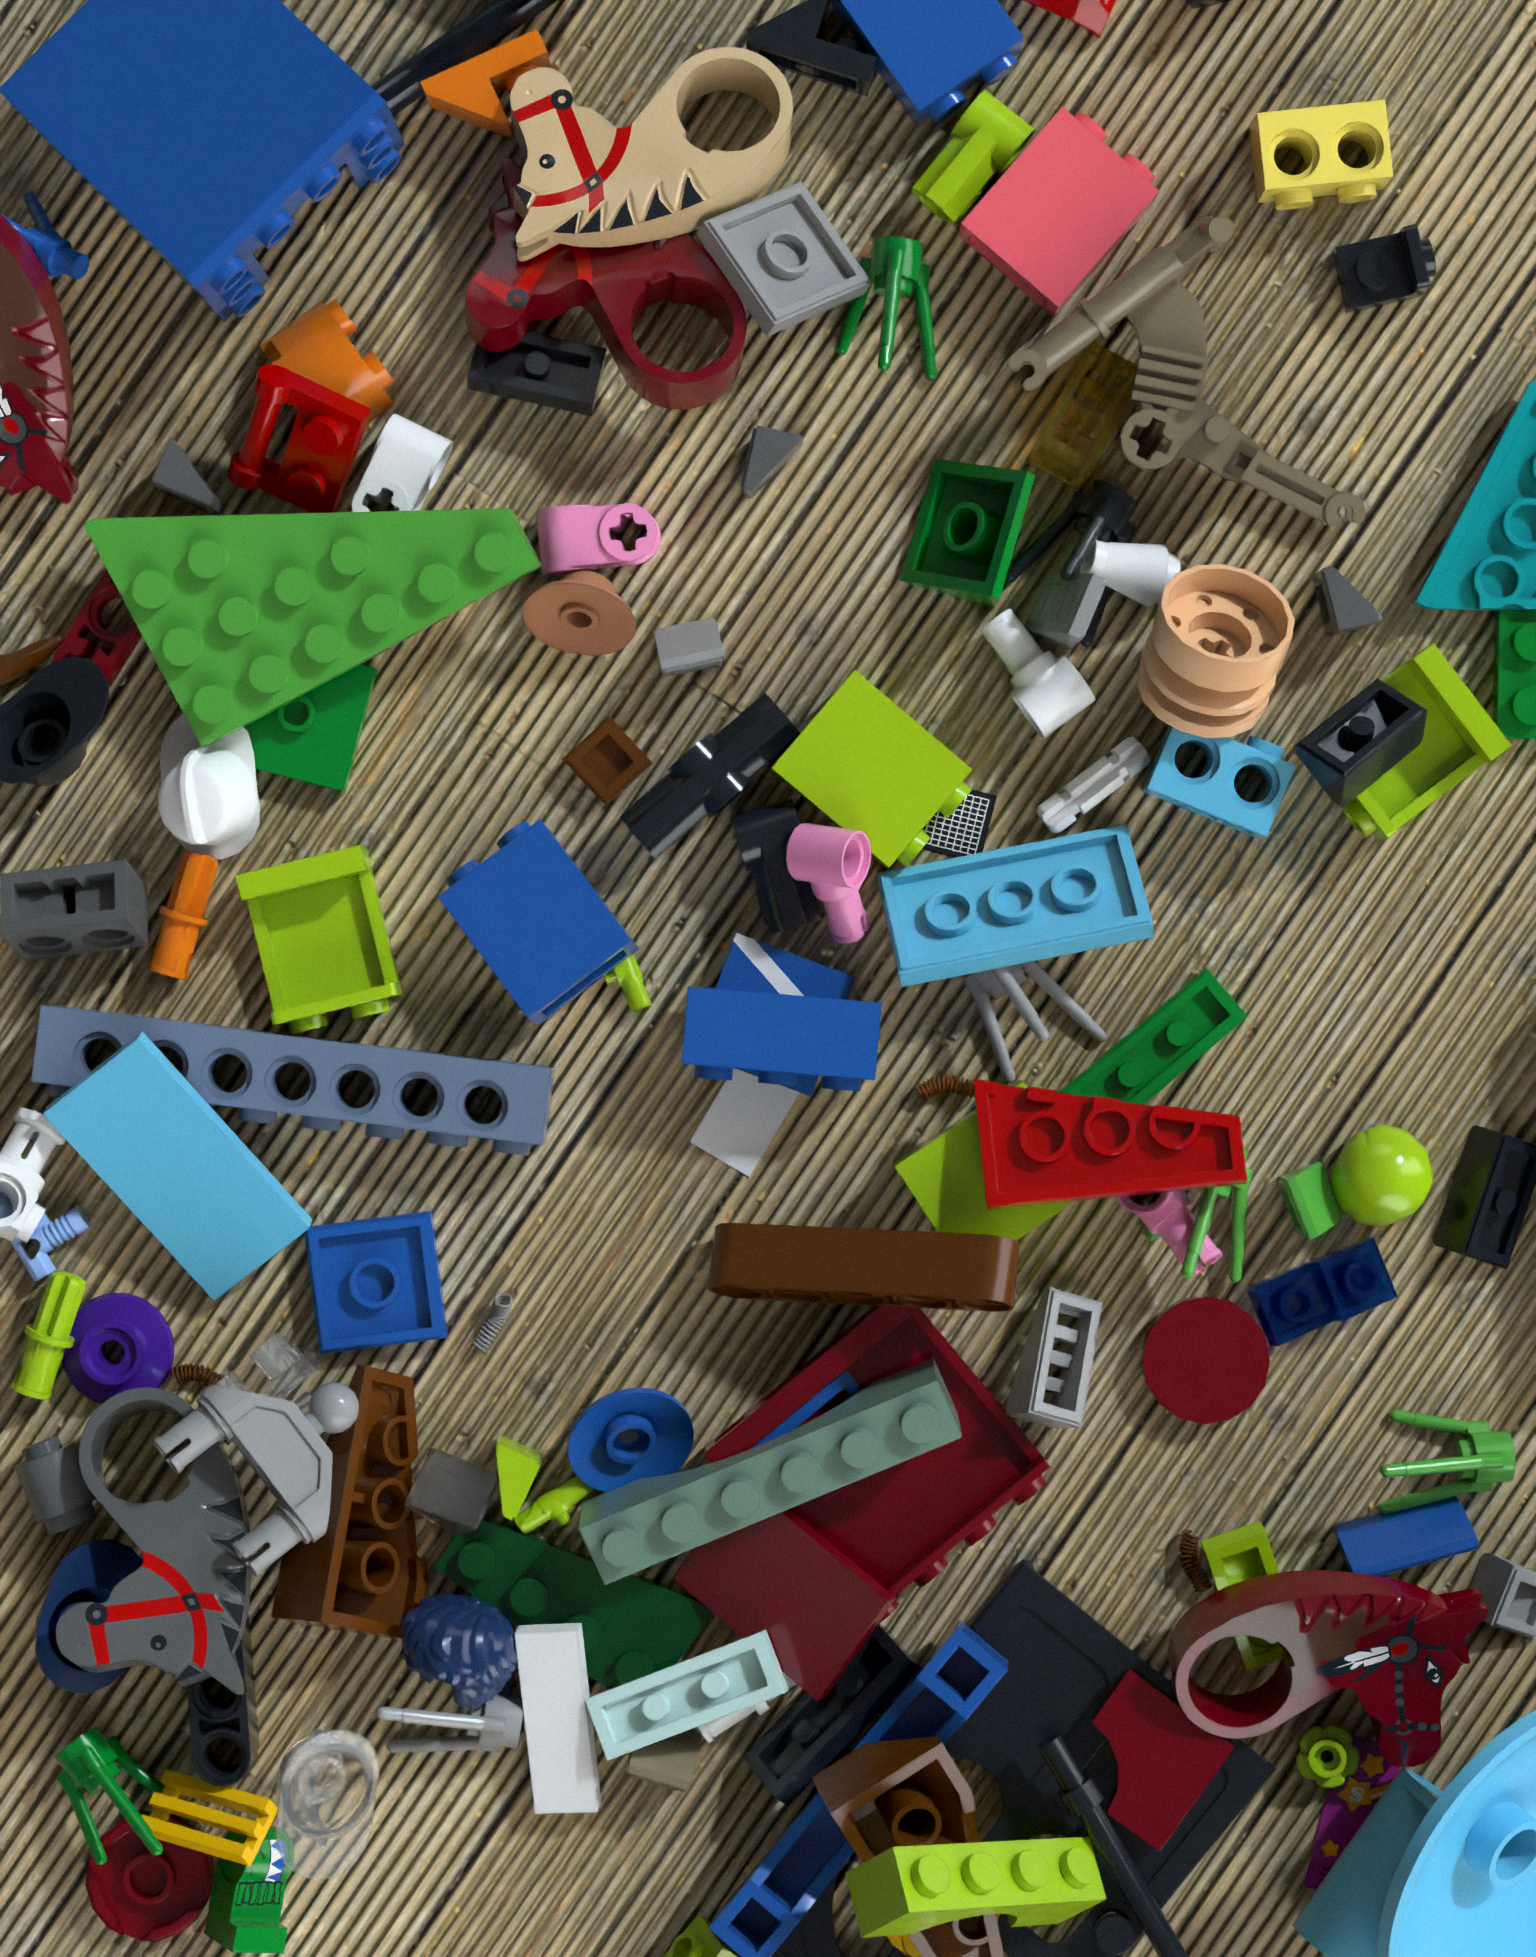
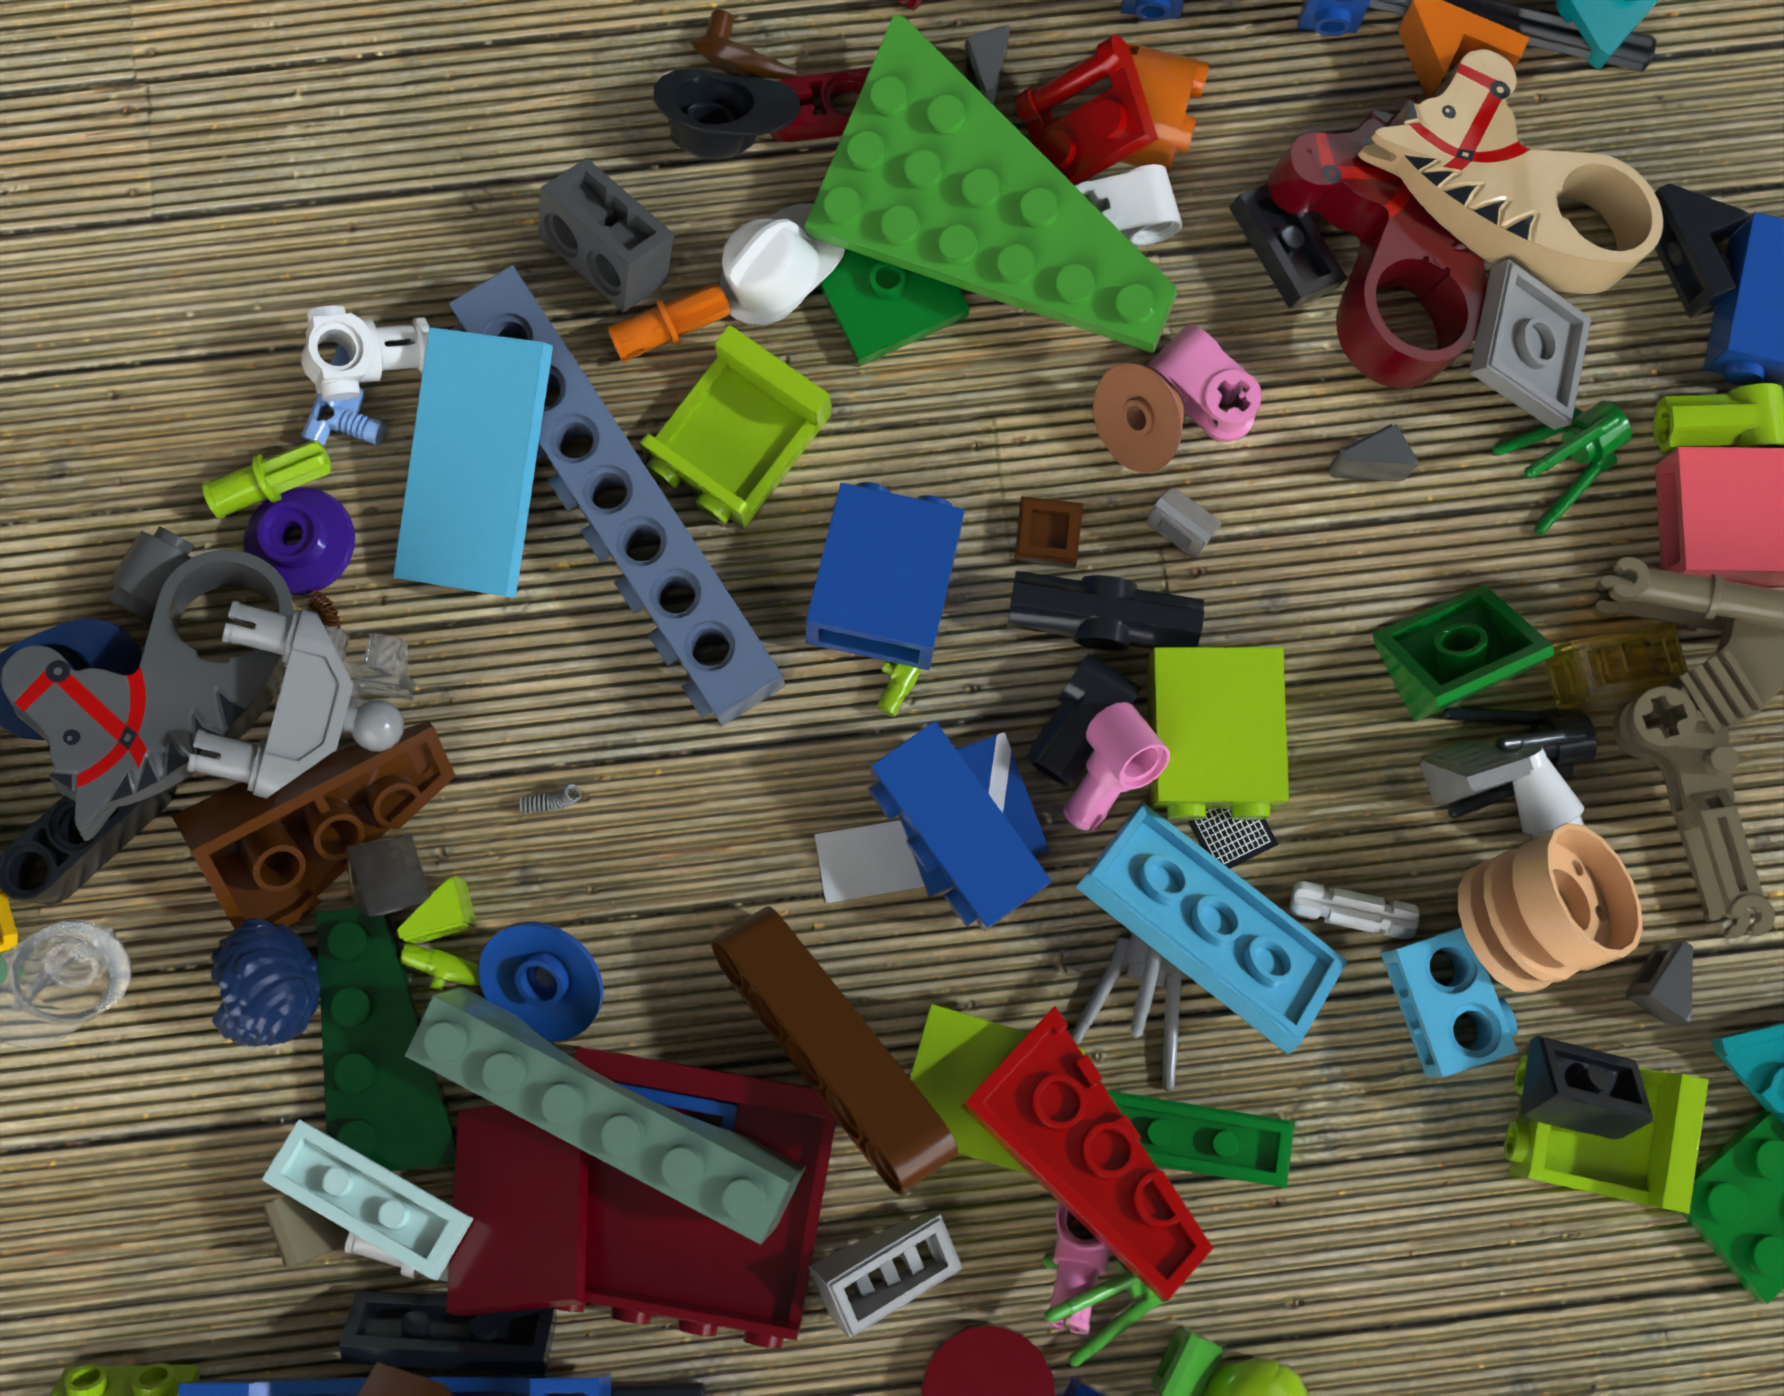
camera: 50 degrees right, 10 degrees down
(376, 1282) = (507, 687): blue tile -> none
(488, 1726) = (220, 1061): light grey plant -> none
(557, 1718) = (266, 1110): white tile -> none
(951, 1086) = (1025, 995): dark orange leg -> none
(1045, 686) = (1394, 808): white pin -> none

